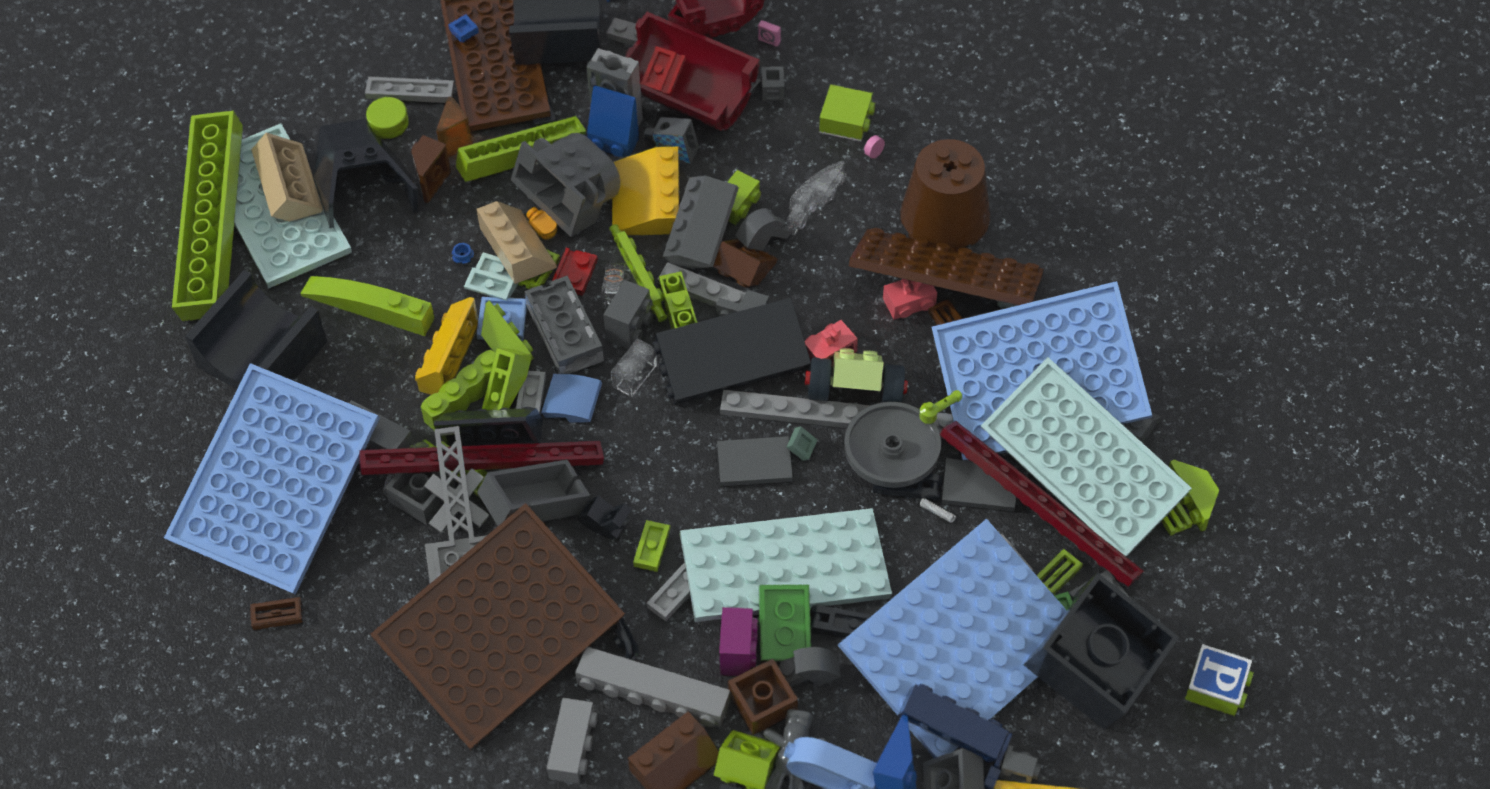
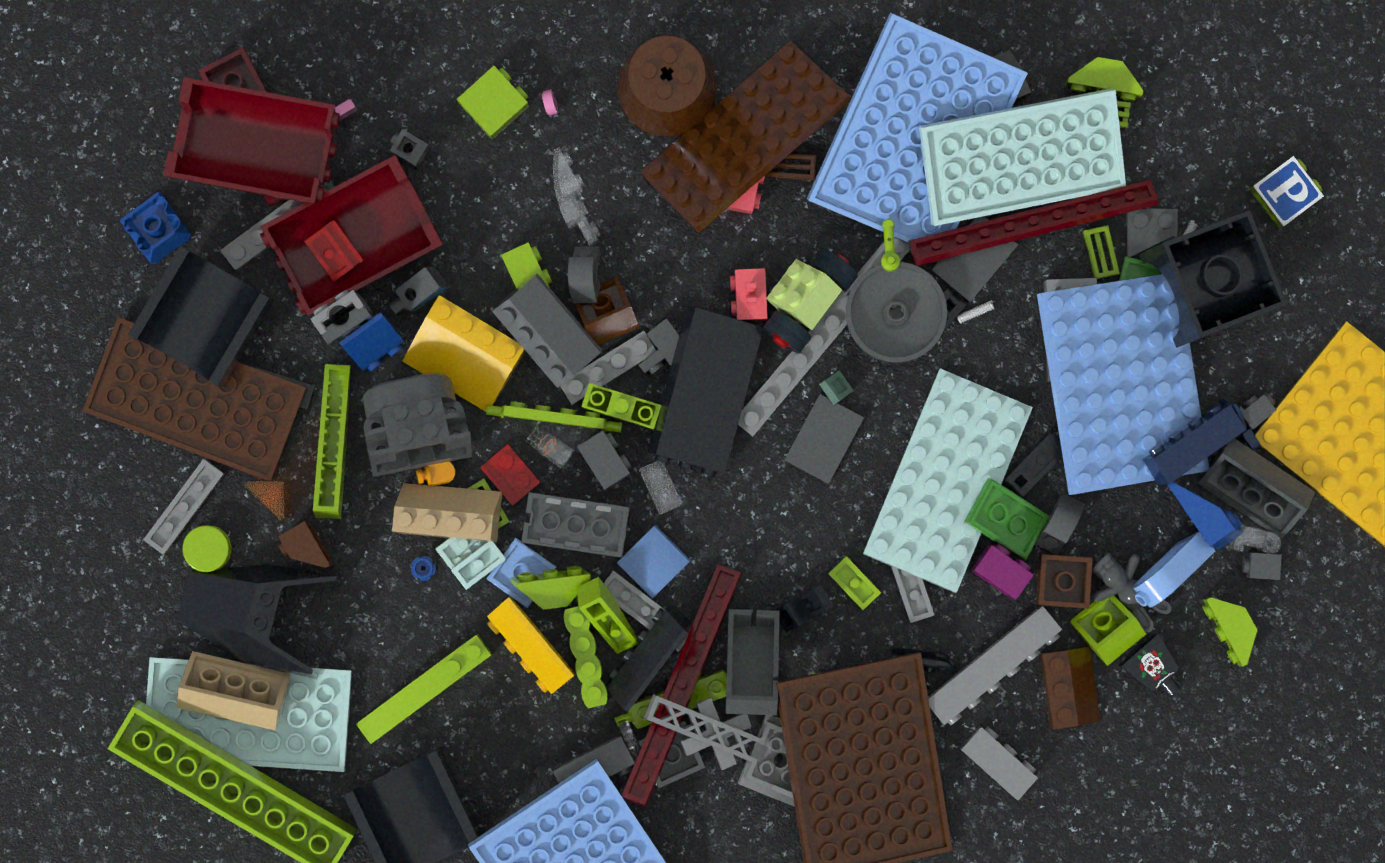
camera: 60 degrees left, 30 degrees up
(463, 28) = (146, 413): blue plate -> none

